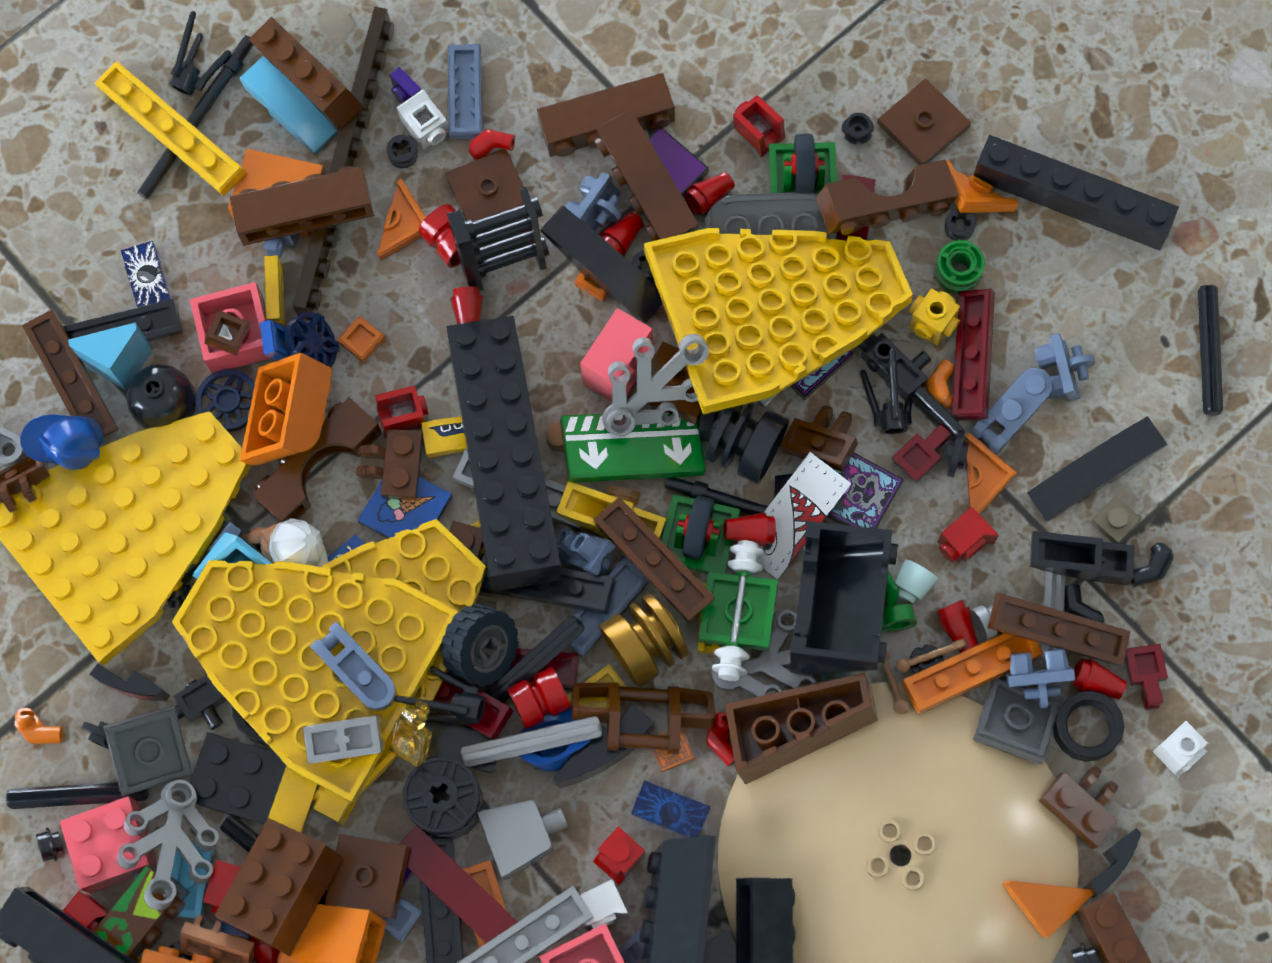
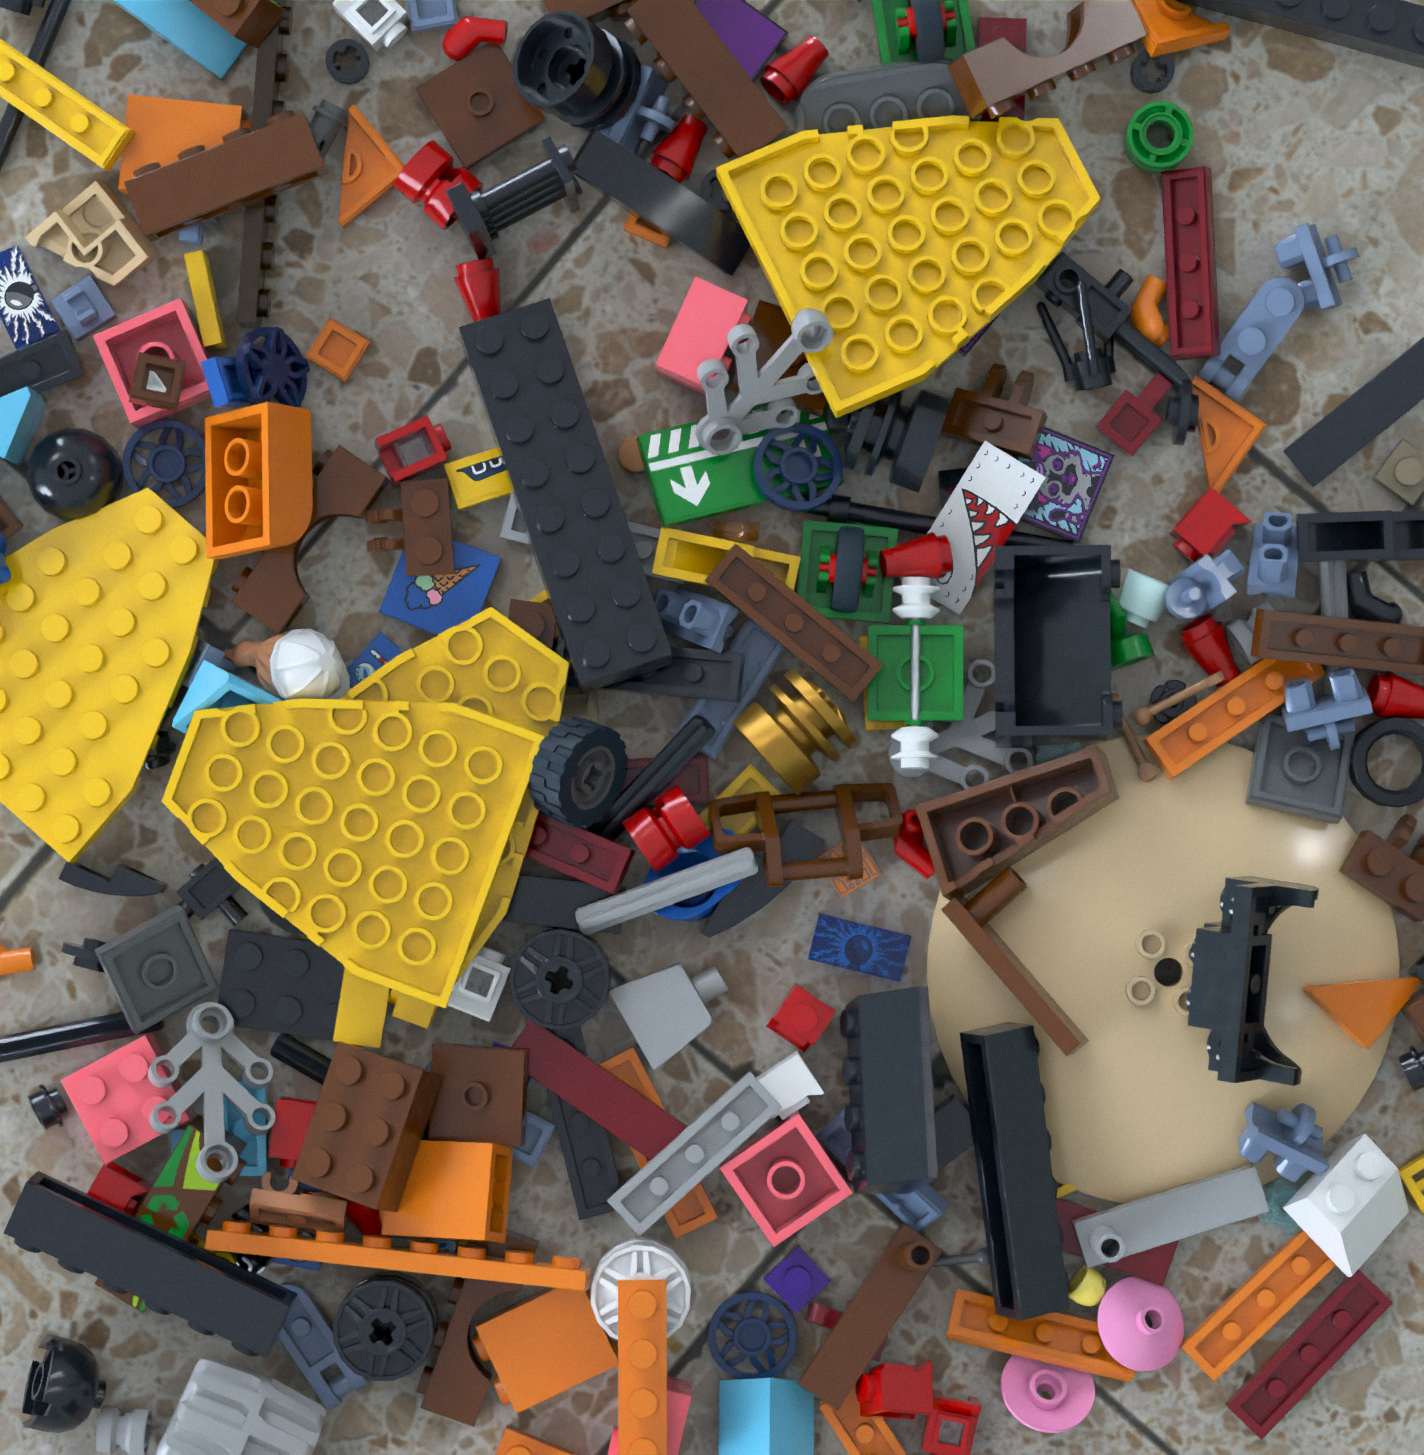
camera: 15 degrees left, 15 degrees up
(188, 285) = (84, 308): none -> sand blue tile
(208, 242) = (96, 235): none -> tan slope
(343, 739) = (423, 931): light grey hinge -> none
(356, 669) = (422, 835): sand blue plate -> none
(380, 188) = (327, 124): none -> dark grey pin
(383, 797) = (481, 984): none -> white window
(410, 737) = (508, 912): clear yellow plate -> none
(464, 708) = (572, 861): black plant -> none
(556, 168) = (576, 71): none -> black wheel
(672, 454) = (797, 467): none -> dark blue wheel
(757, 797) = (972, 921): none -> reddish brown piece
(934, 316) = (1122, 231): yellow brick -> none
(948, 854) = (1232, 979): none -> black piece
(958, 575) = (1202, 585): none -> sand blue hips
(1012, 563) = (1274, 557): none -> sand blue hips

